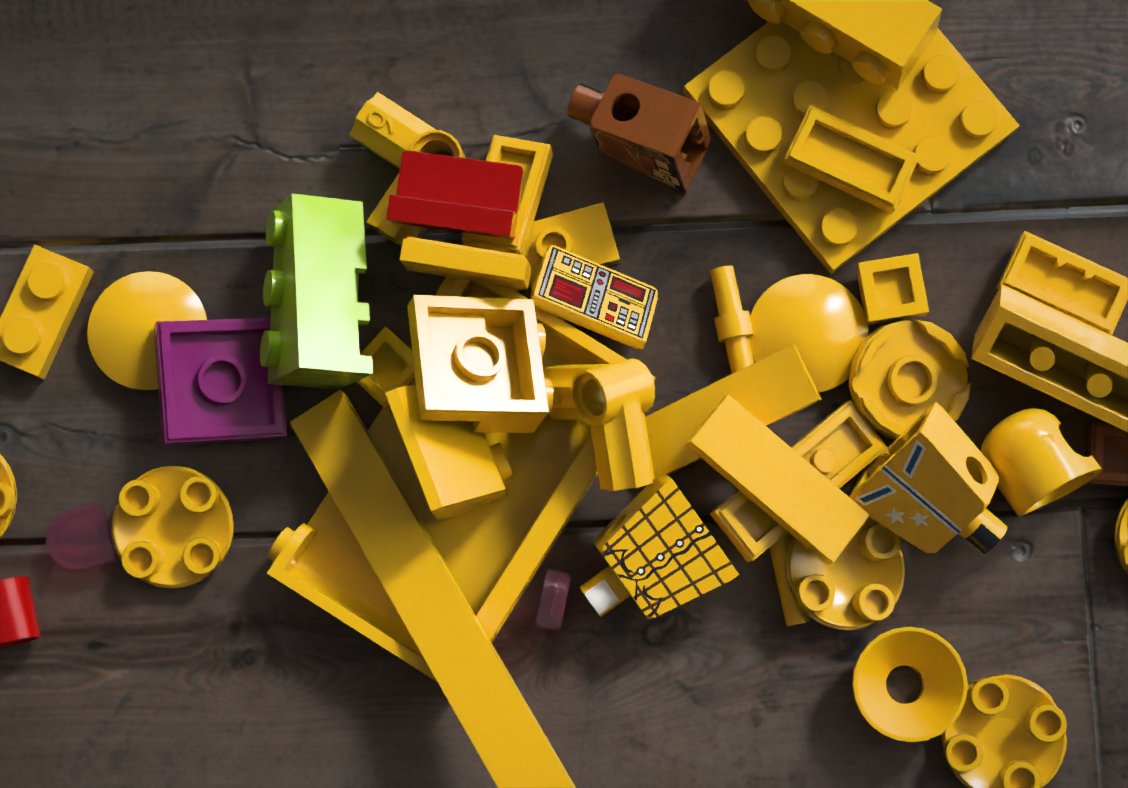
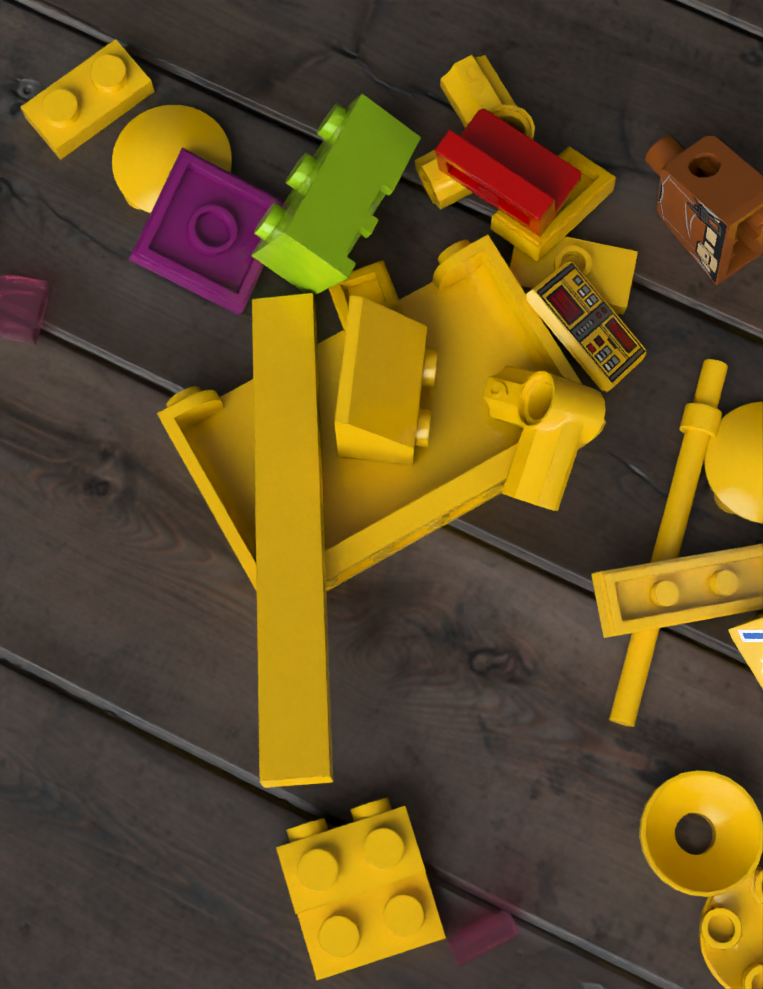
camera: 25 degrees right, 5 degrees down
(172, 527) = (98, 337): yellow dish -> none
(465, 262) = (486, 228): yellow tile -> none
(479, 362) = (451, 320): plate -> none
(553, 603) = (401, 581): clear pink tile -> none
(657, 554) = (523, 585): yellow torso -> none
(766, 388) = (658, 491): yellow tile -> none
(777, 479) = (673, 573): yellow tile -> none
(856, 587) = (693, 694): yellow dish -> none

